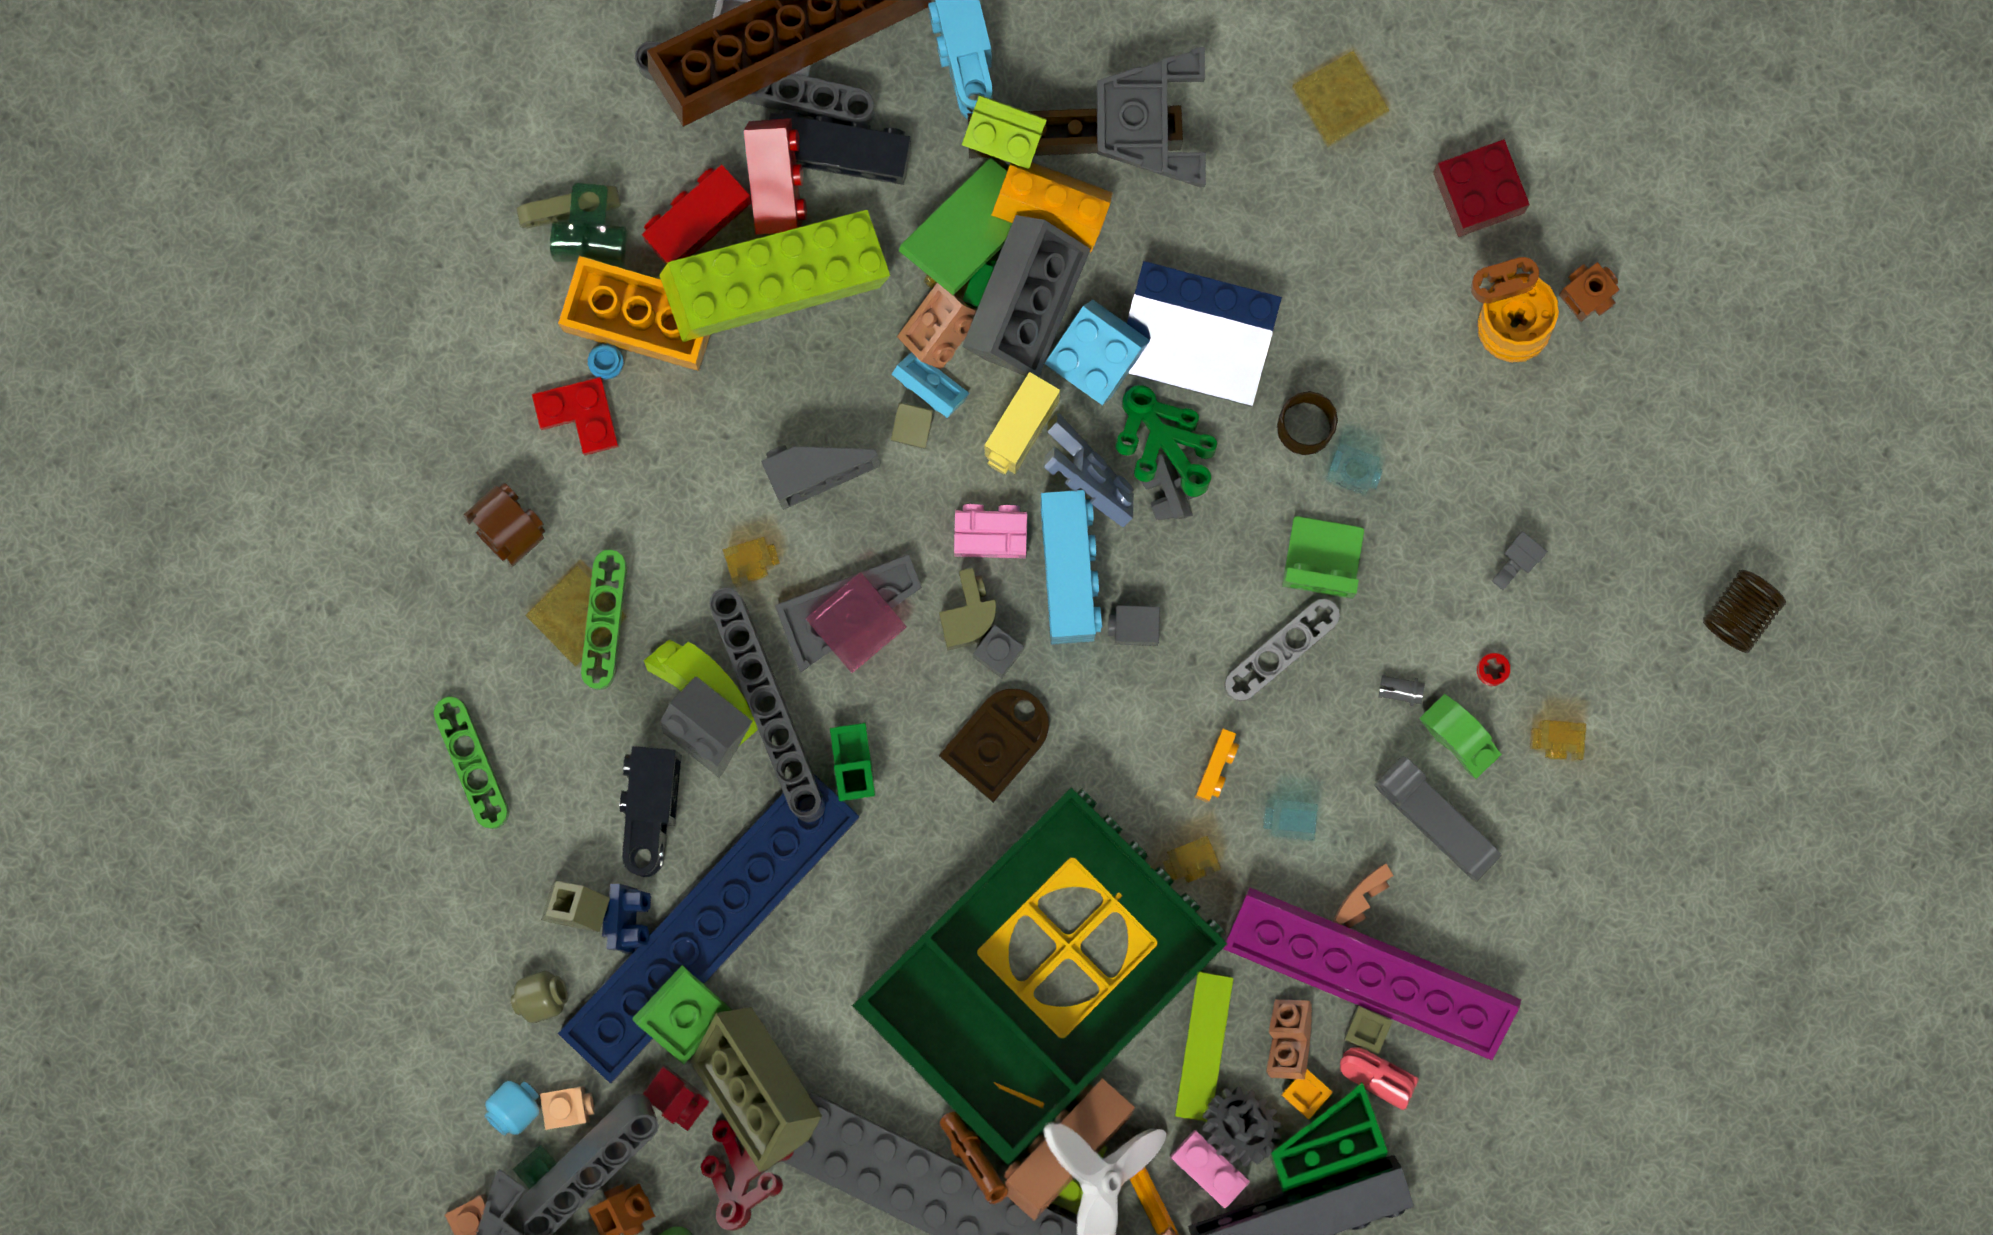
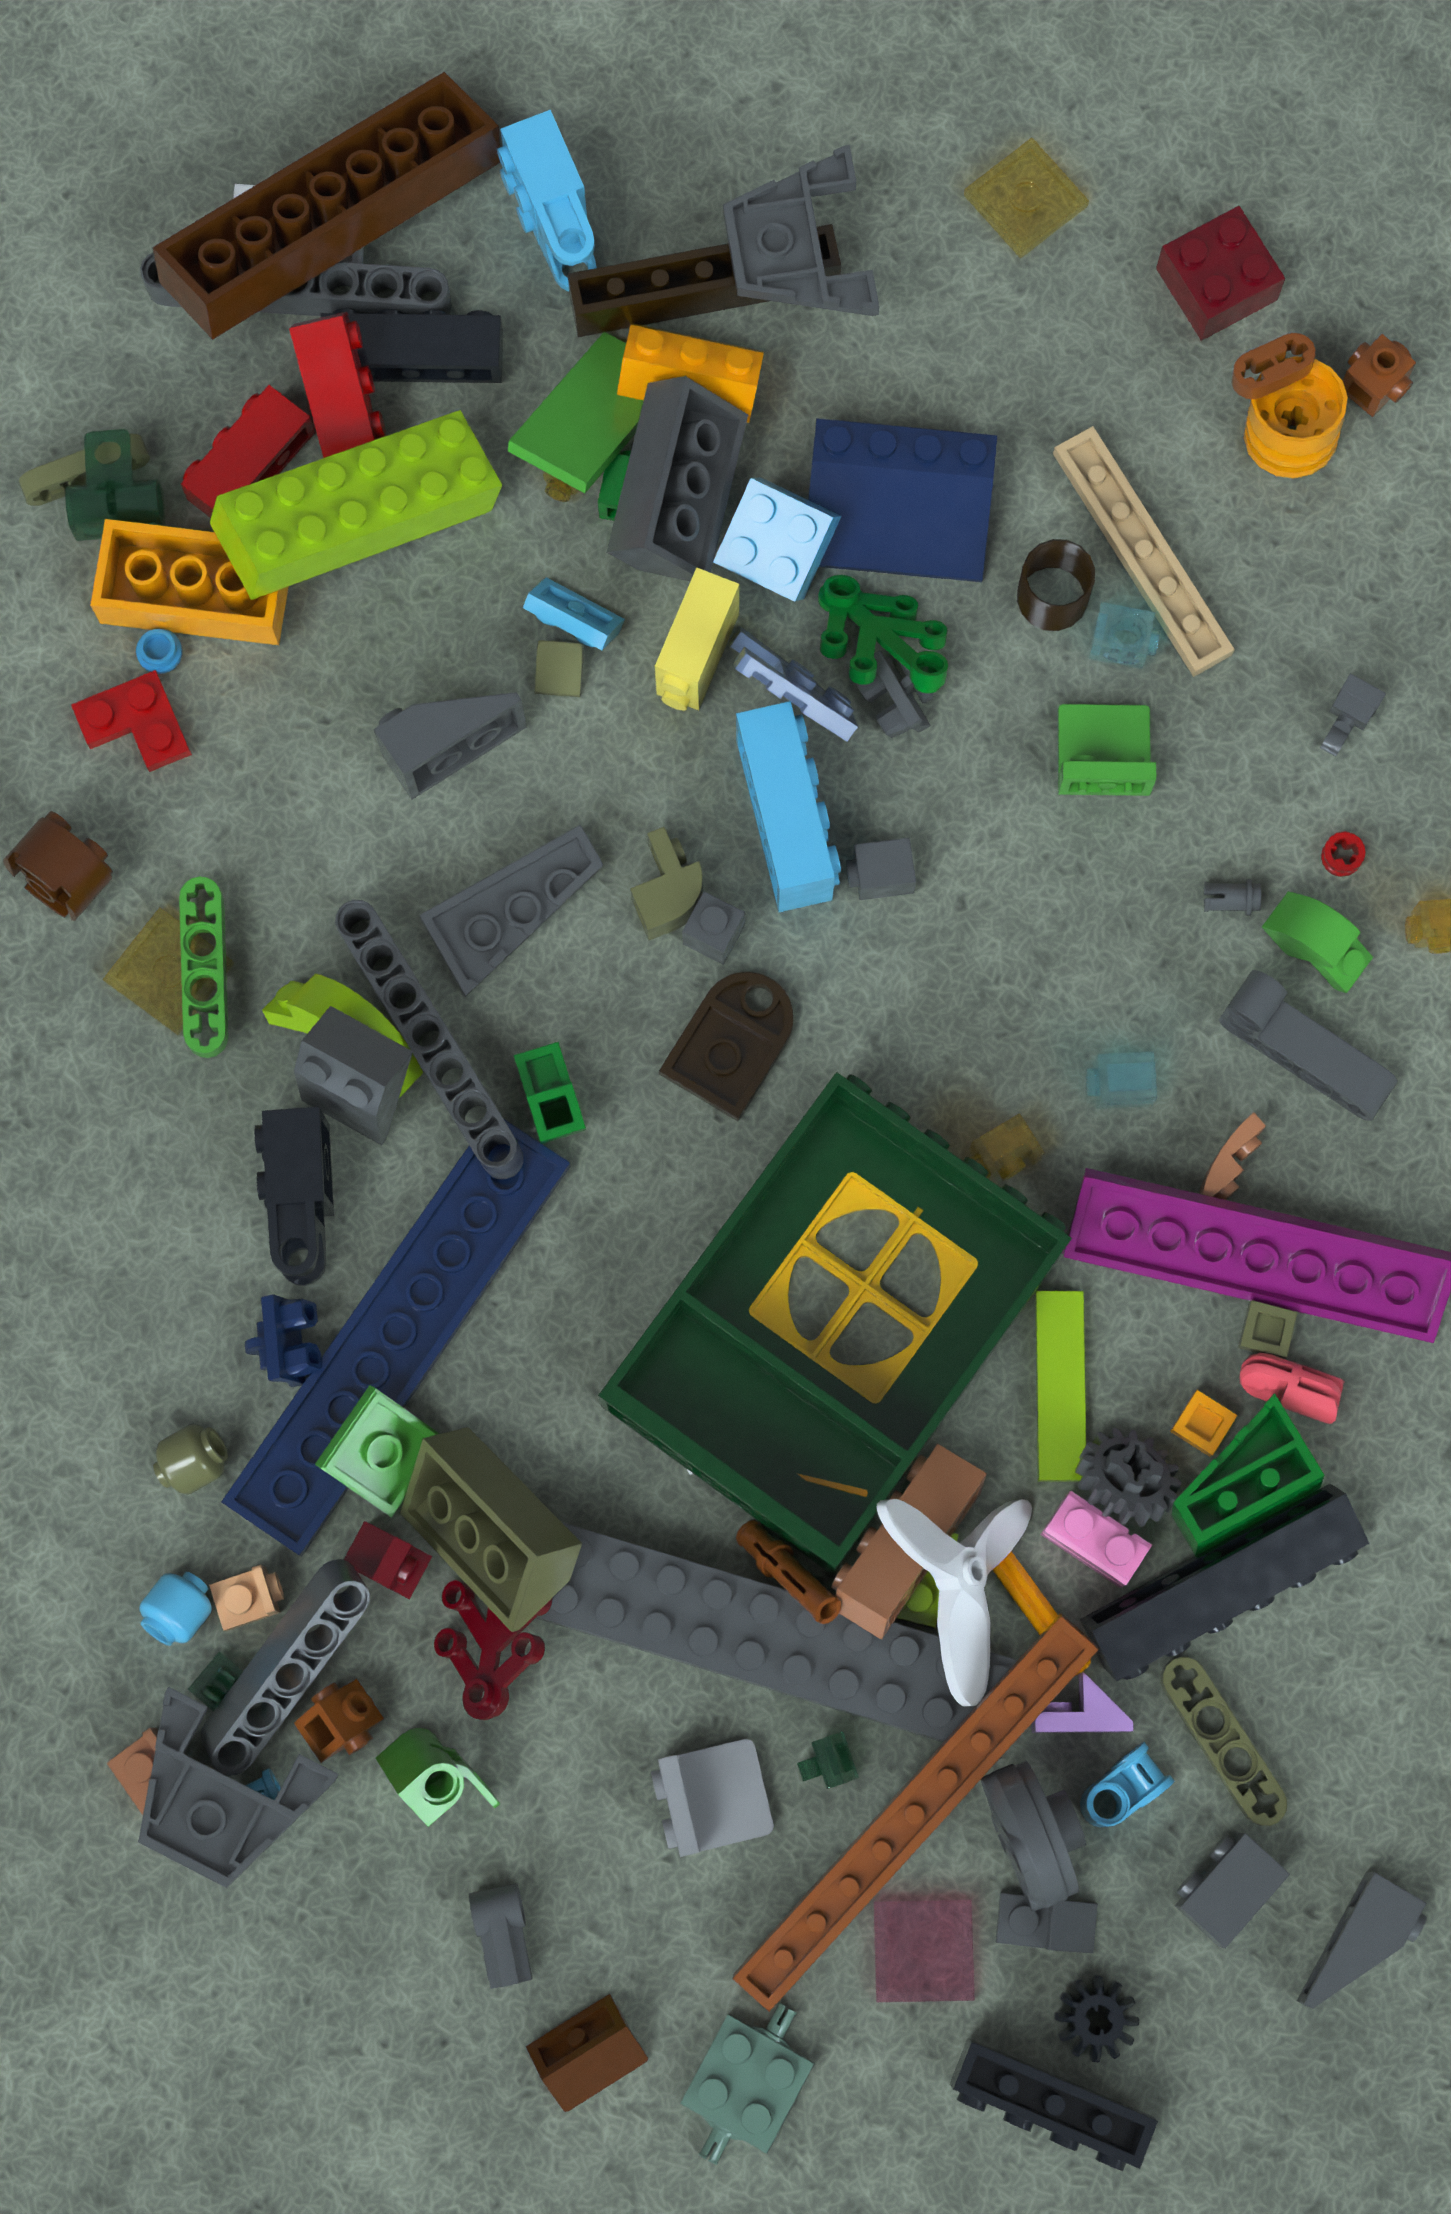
camera: 10 degrees left, 5 degrees down
(468, 764) = (62, 1174): bright green beam -> none
(575, 906) = (219, 1332): olive slope -> none
(750, 560) = (380, 864): clear yellow brick -> none
(856, 622) = (526, 919): clear pink tile -> none
(937, 327) = (572, 541): nougat bracket -> none
(990, 532) = (679, 783): bright pink brick -> none
(1004, 131) = (616, 285): lime plate -> none
(1223, 752) = (1021, 1008): light orange plate -> none
(1284, 653) = (1074, 874): light grey beam -> none
(1291, 1039) = (1170, 1357): nougat slope -> none
(1381, 403) = (1143, 551): none -> tan plate

